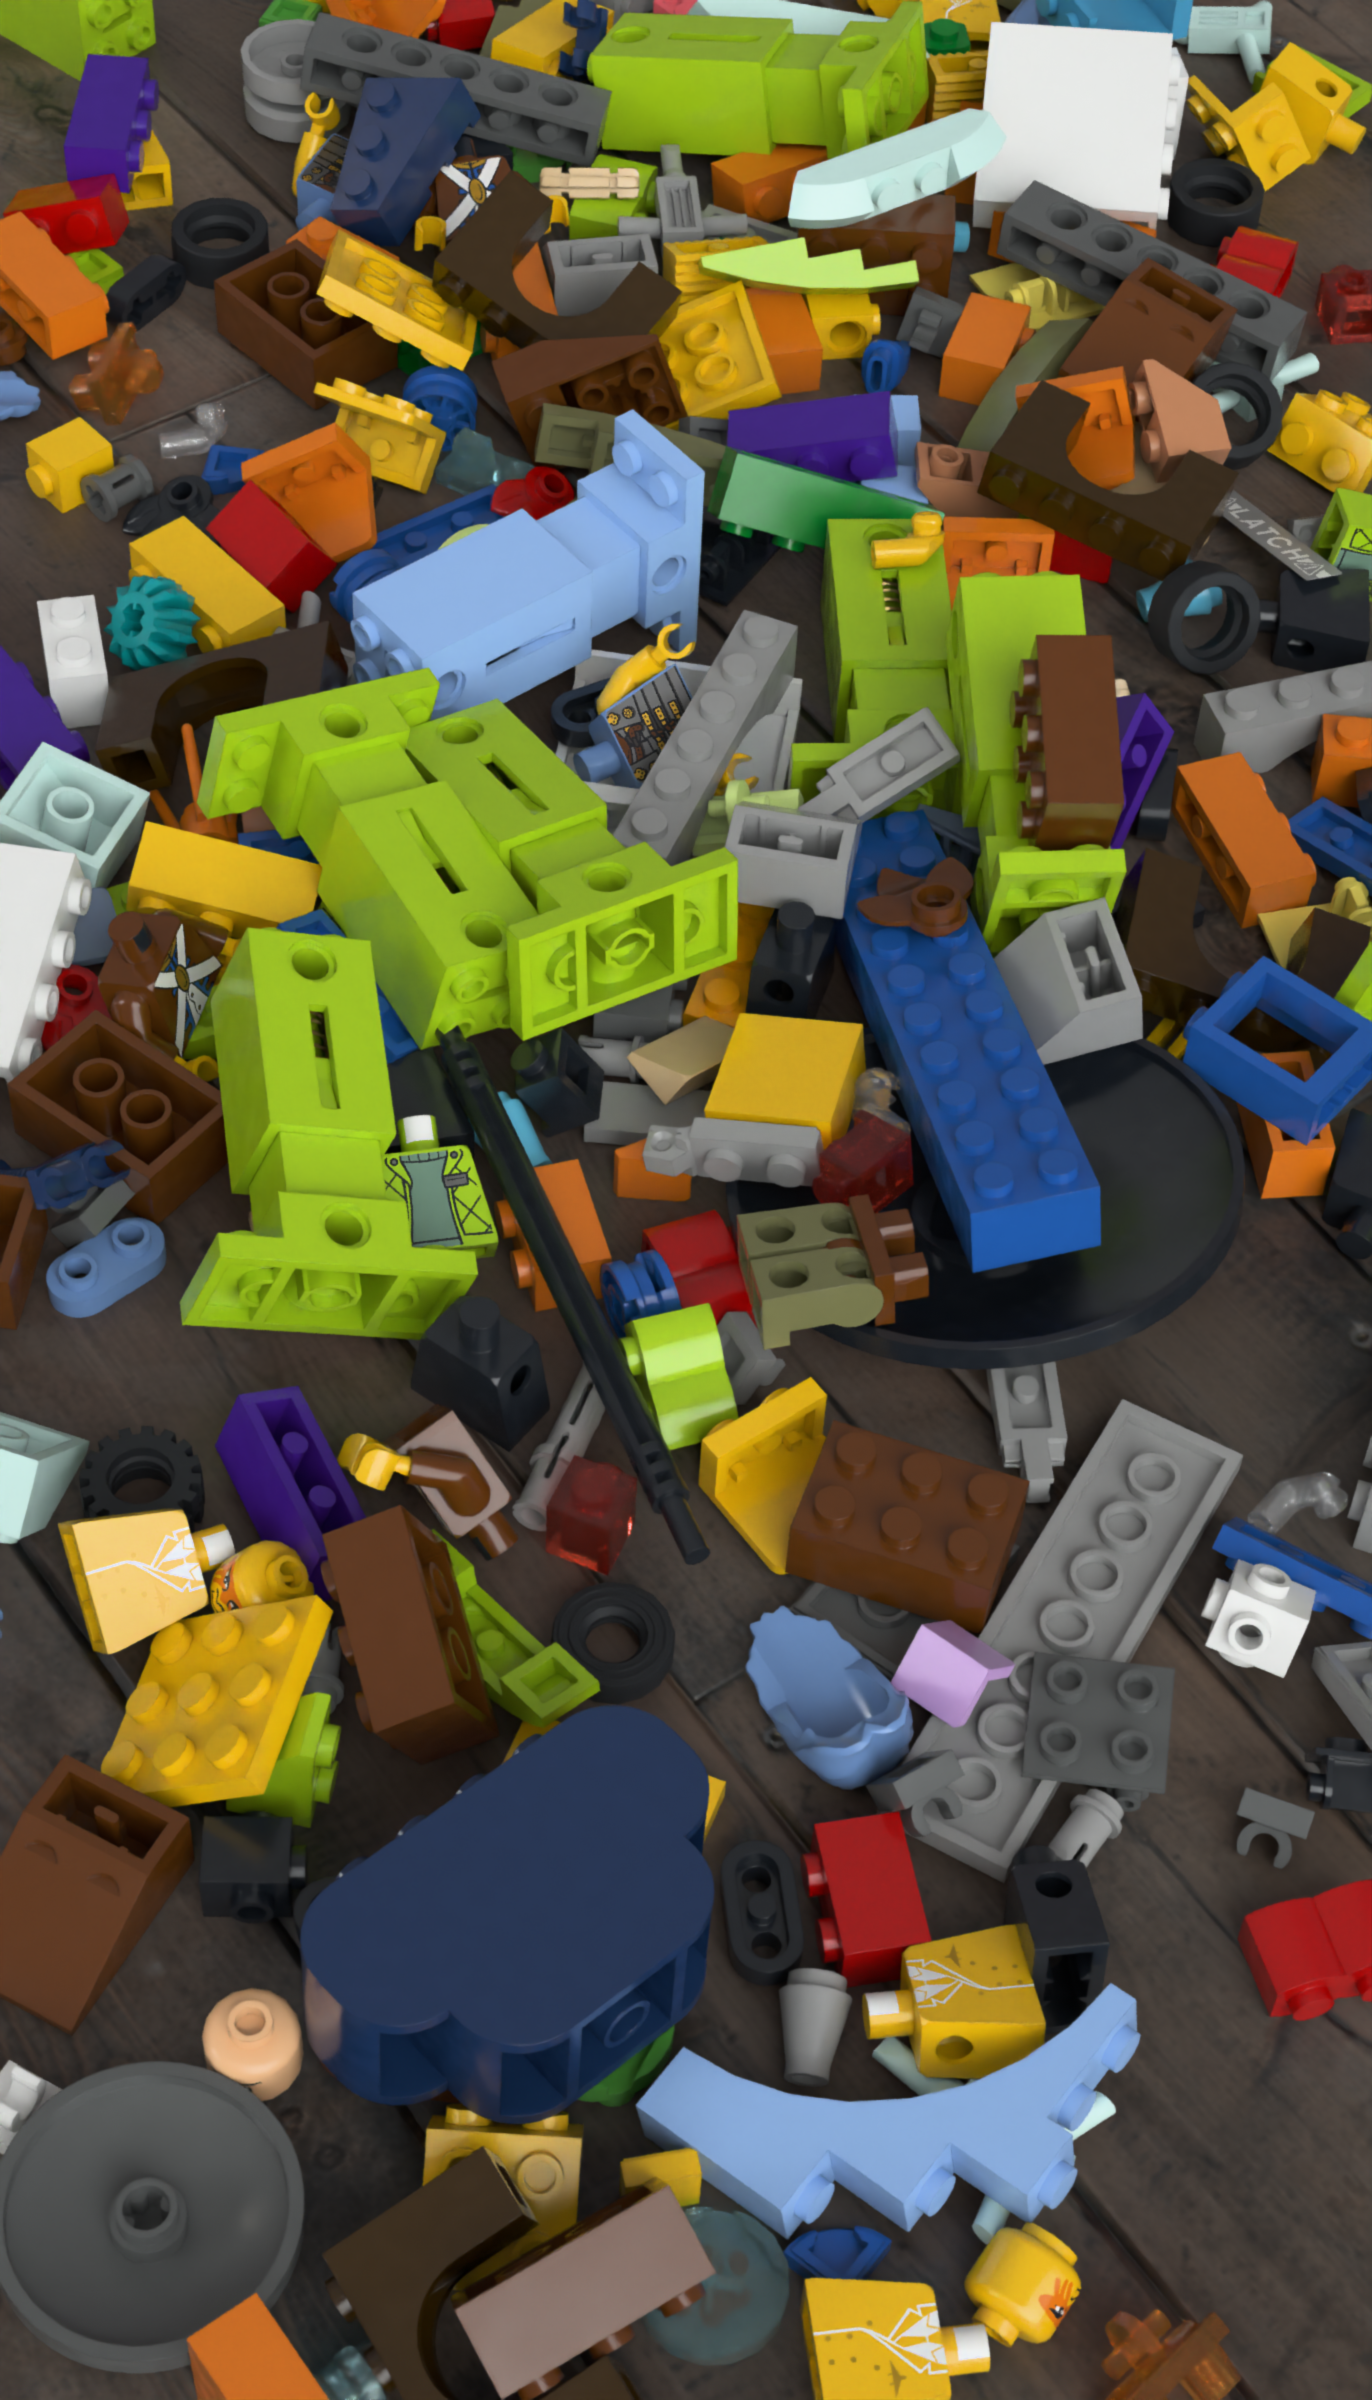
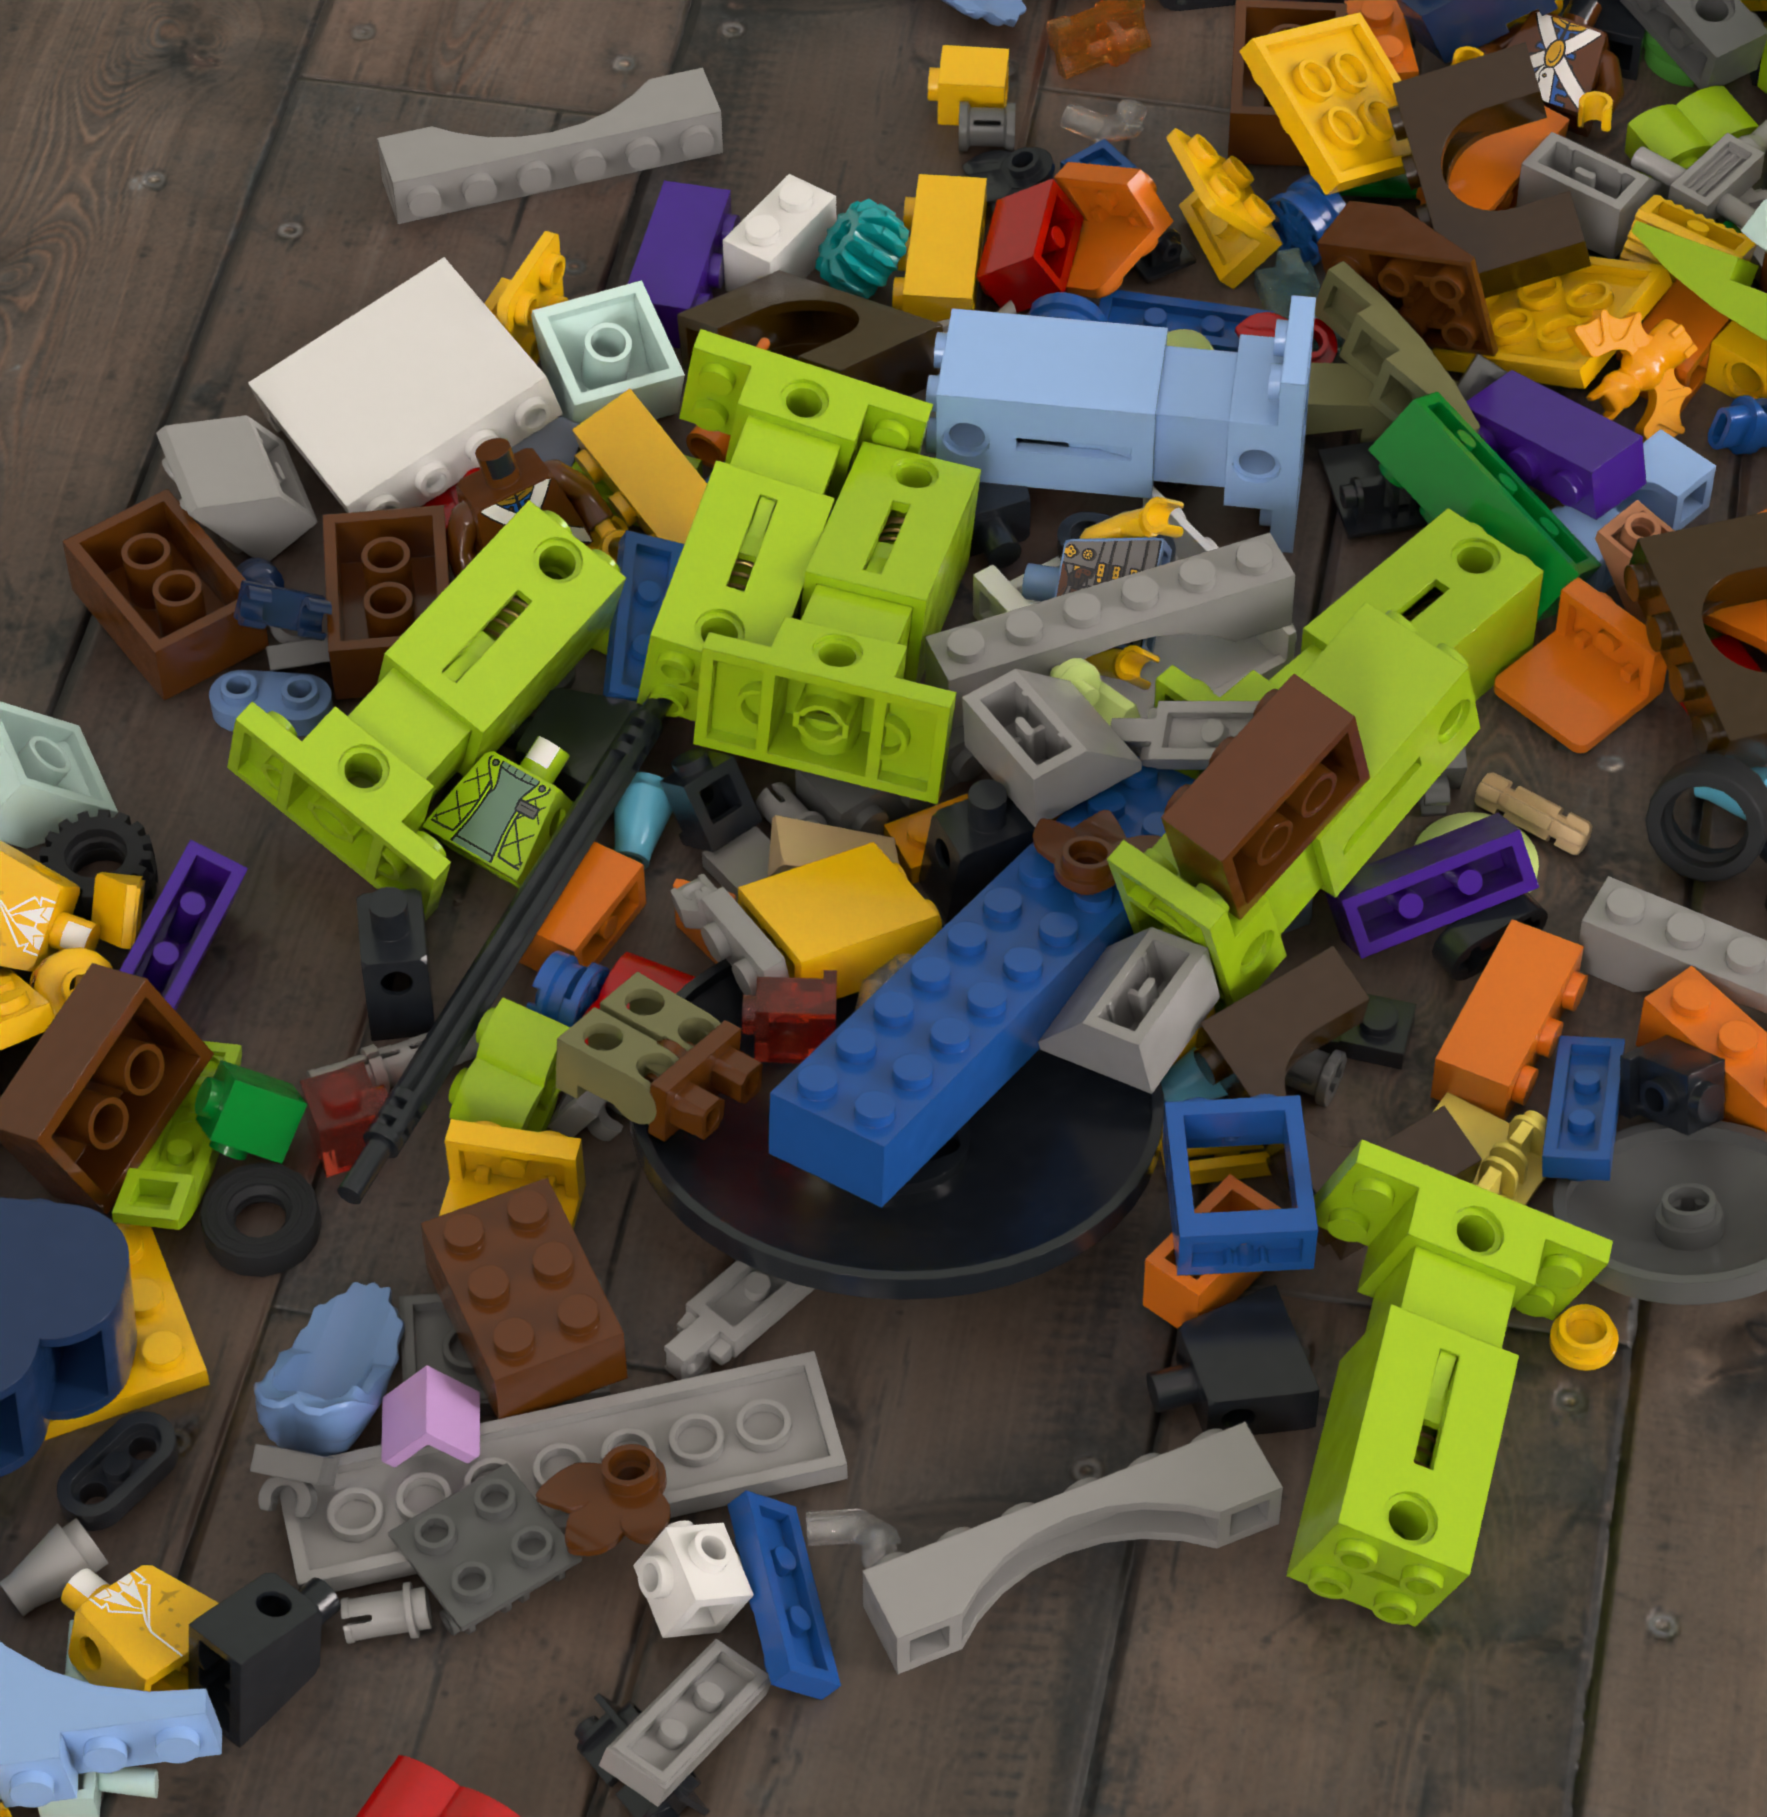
camera: 50 degrees right, 0 degrees up
(225, 1495) = (118, 907): none -> yellow slope
(446, 1472) = (266, 997): reddish brown torso -> none
(528, 1565) = (248, 1113): none -> green brick
(590, 182) = (1664, 104): tan axle -> none
(795, 346) = (1645, 366): none -> light orange animal
(865, 1896) = (190, 1516): red brick -> none
(914, 548) = (1478, 578): yellow arm -> none
(1151, 1618) = (610, 1500): none -> reddish brown plate
(1274, 1818) = (526, 1719): dark grey tile -> none

